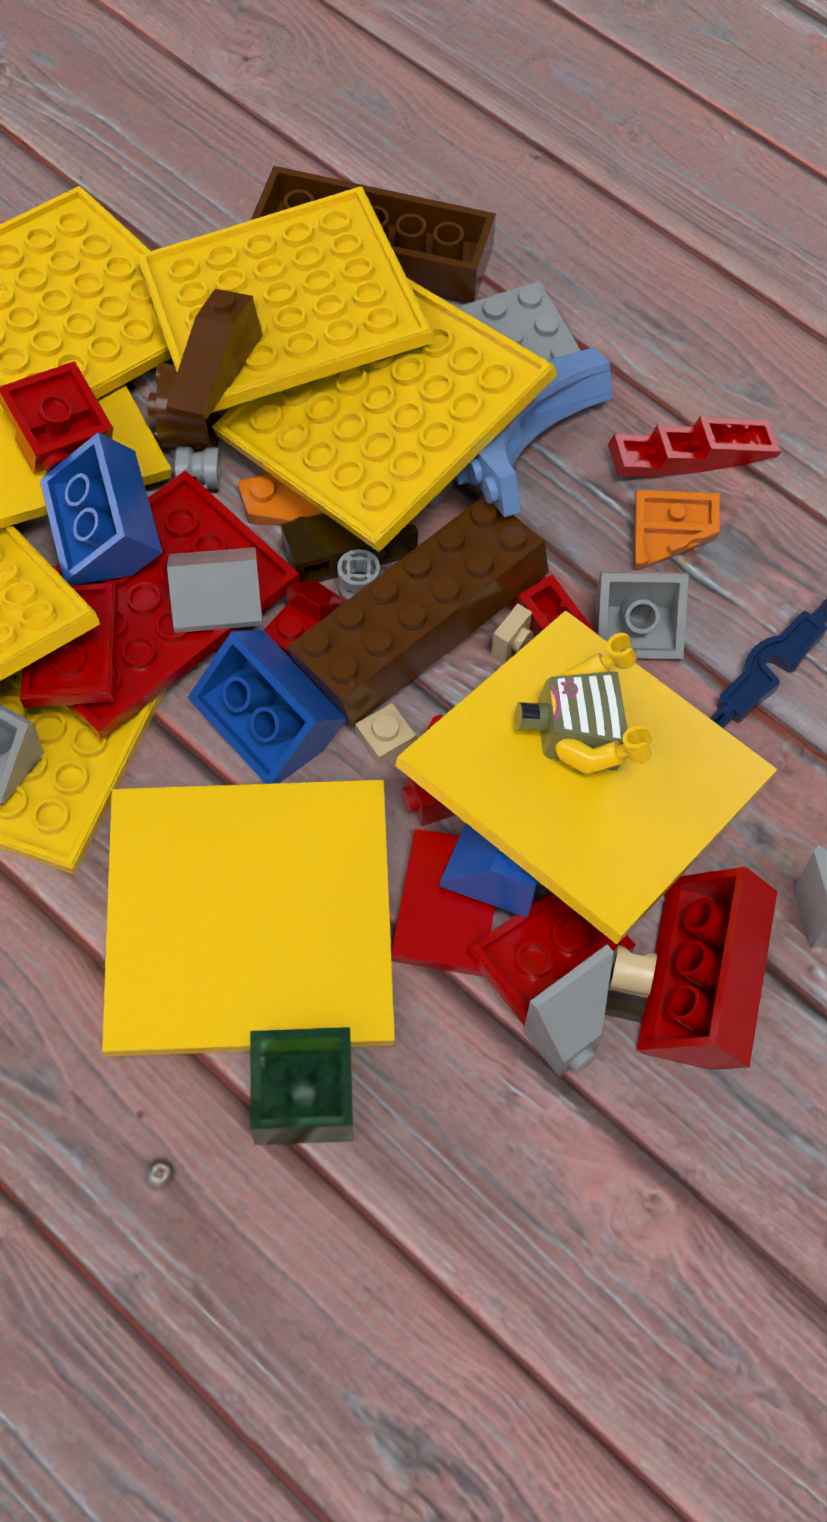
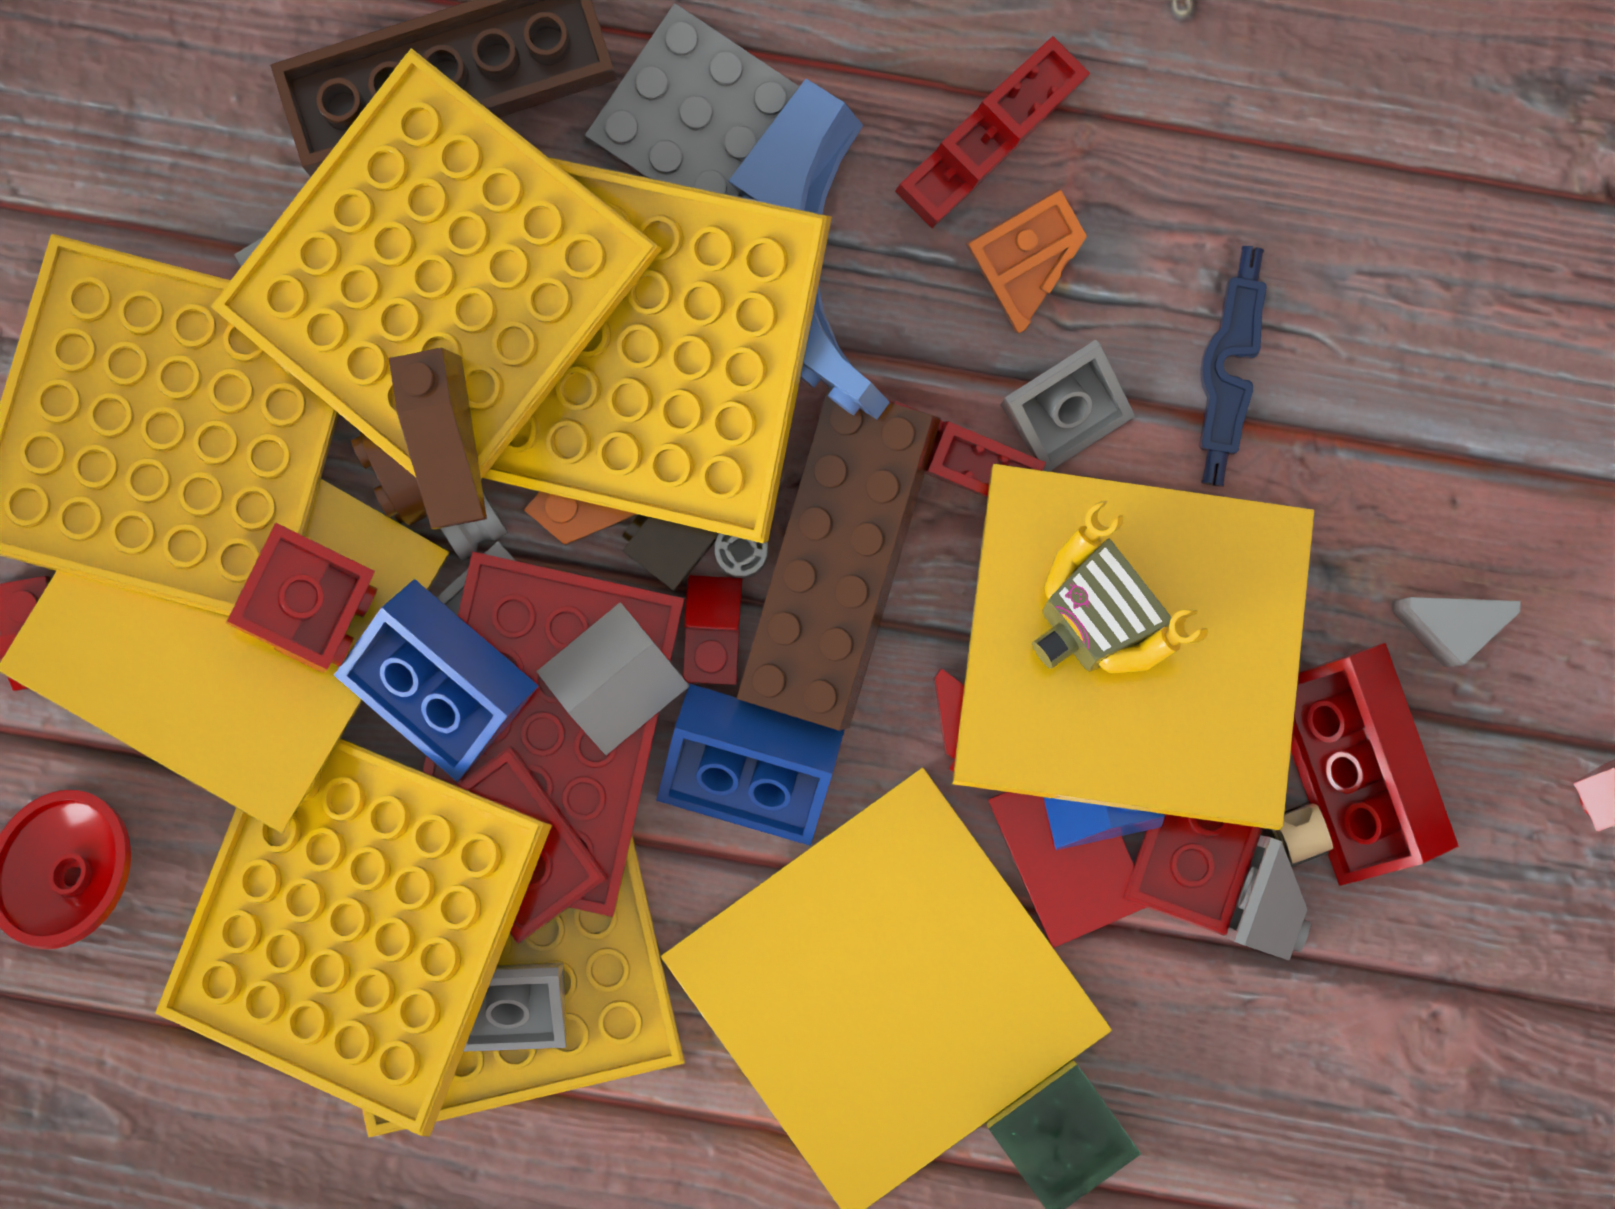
camera: 35 degrees left, 25 degrees up
(385, 733) = (887, 709): tan plate -> none
(512, 634) = (948, 513): tan plate -> none

